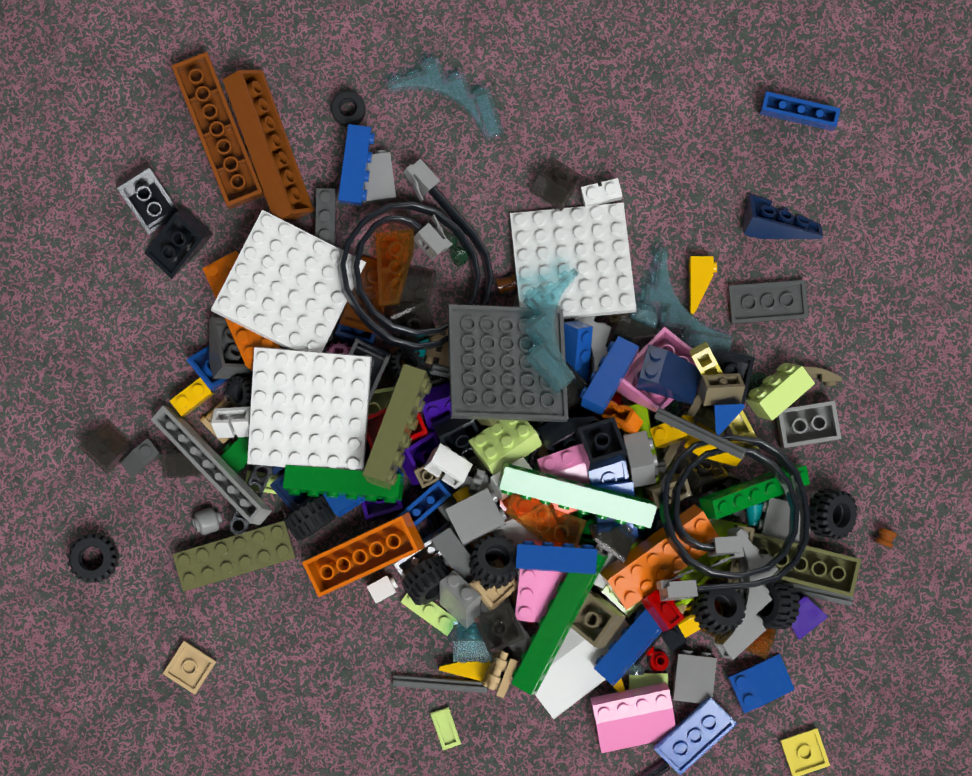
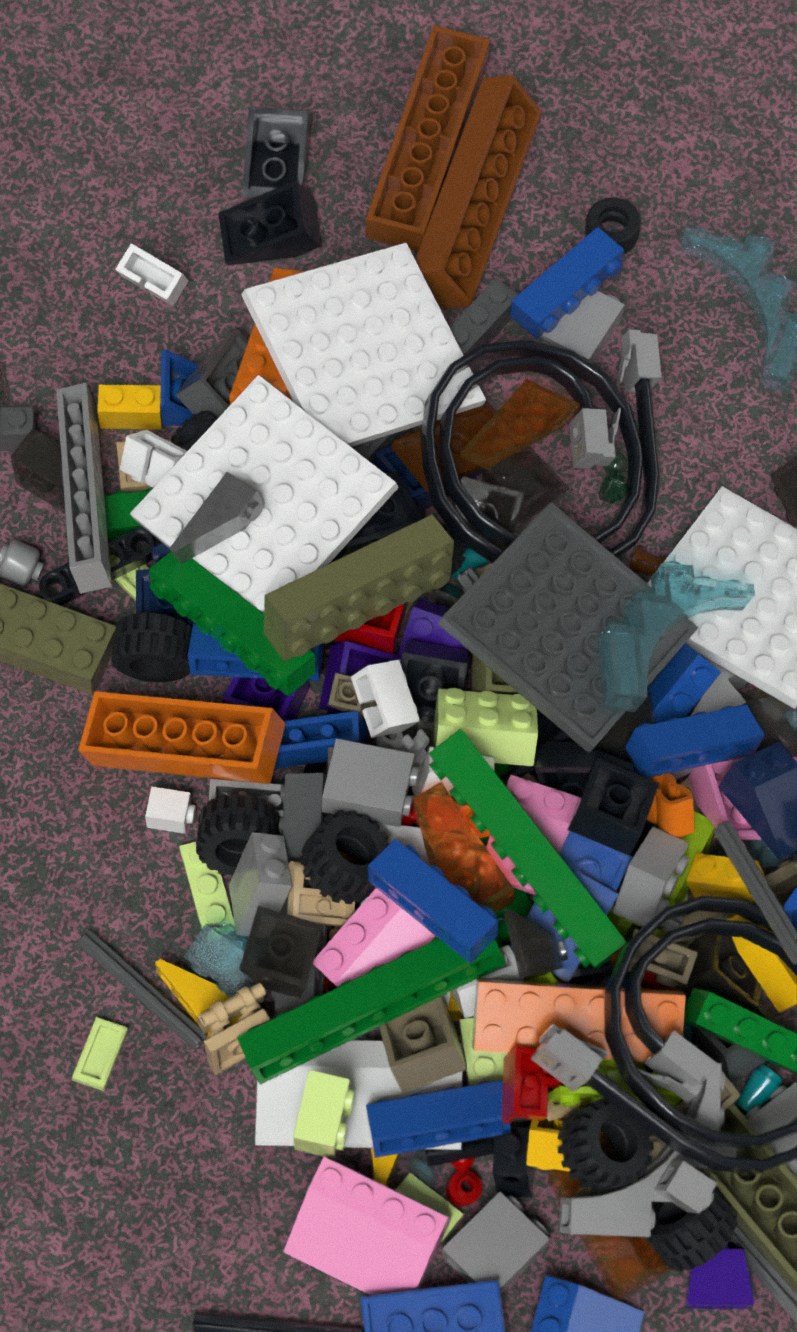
camera: 40 degrees right, 20 degrees down
(135, 316) = (152, 274): none -> white piece
(299, 434) = (221, 515): none -> flat silver slope
(579, 691) = (322, 1114): none -> yellowish green brick
(767, 598) = (686, 1187): none -> light grey brick

